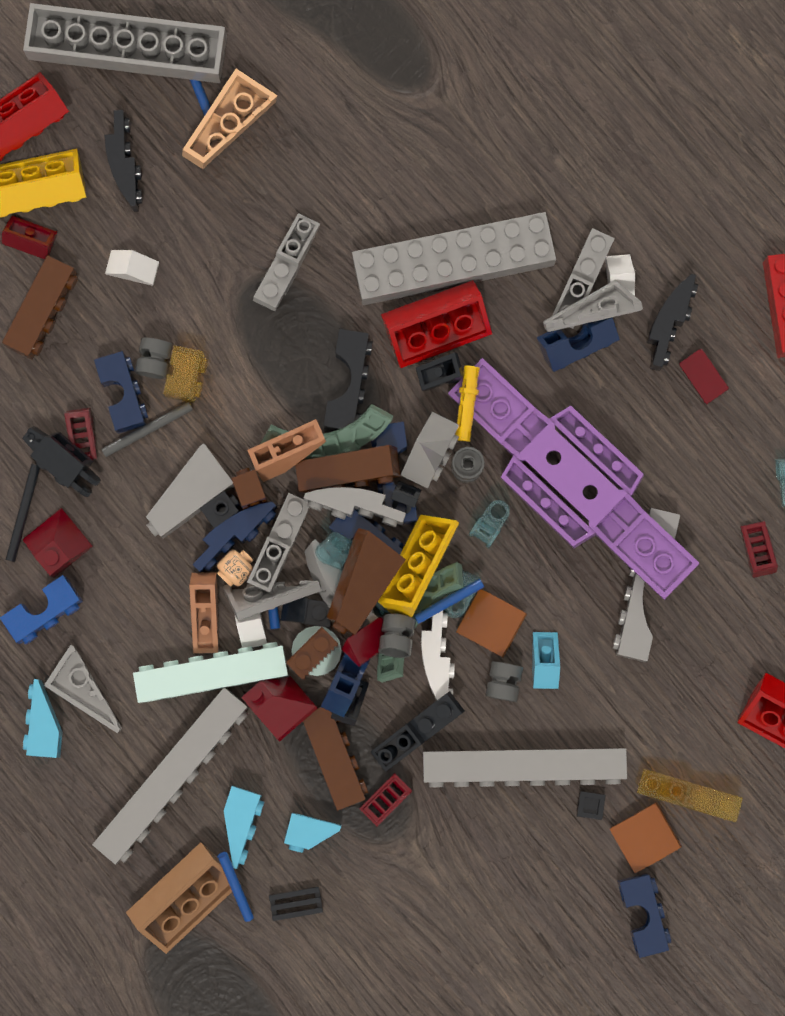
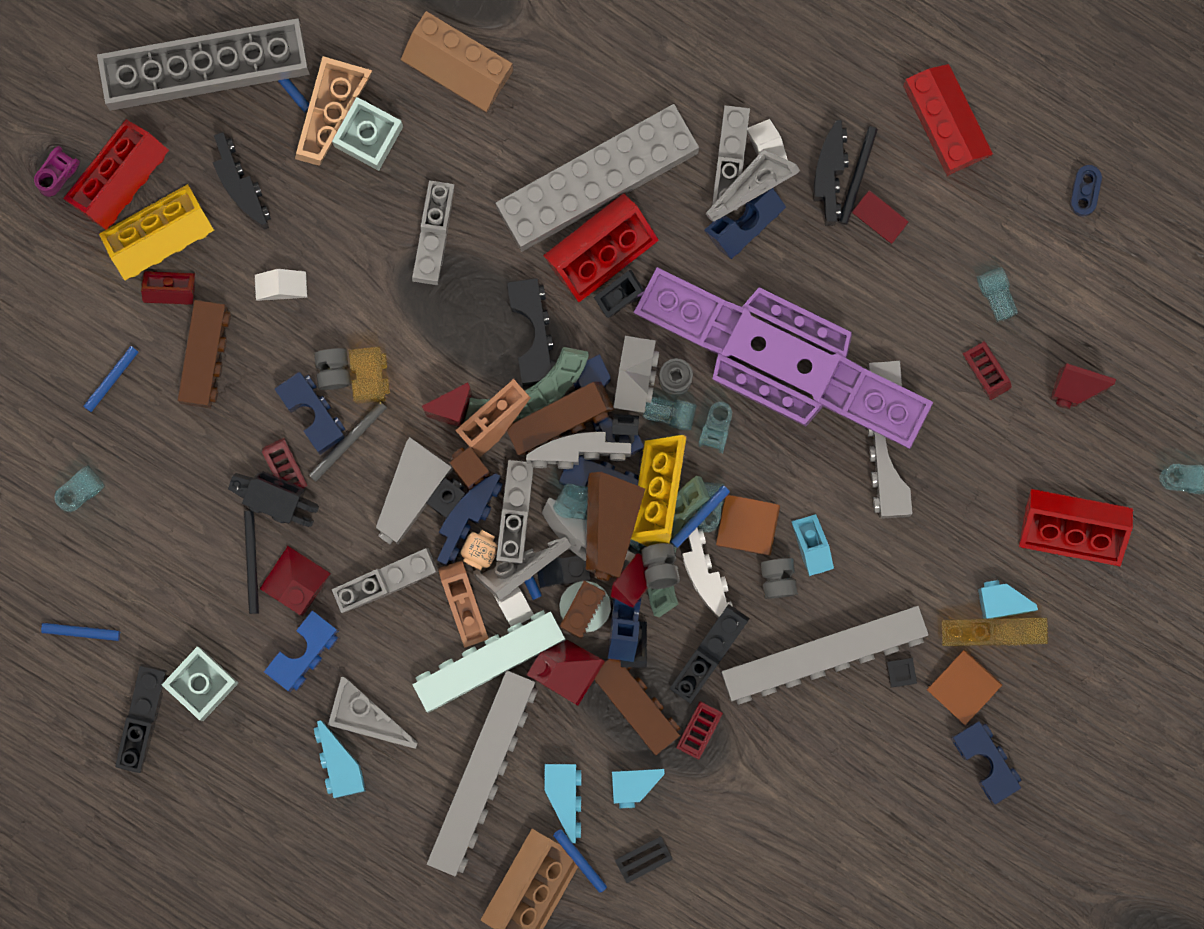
camera: 15 degrees left, 0 degrees up
(139, 568) = (385, 580): none -> light grey slope
(250, 426) = (450, 407): none -> dark red slope
(255, 152) = (367, 133): none -> light aqua brick
(358, 112) = (456, 61): none -> medium nougat slope
(456, 498) = (676, 414): none -> clear light blue piece
(467, 402) = (654, 307): yellow pin -> none
(695, 331) = (858, 175): none -> black bar
(706, 768) = (1003, 601): none -> medium azure slope

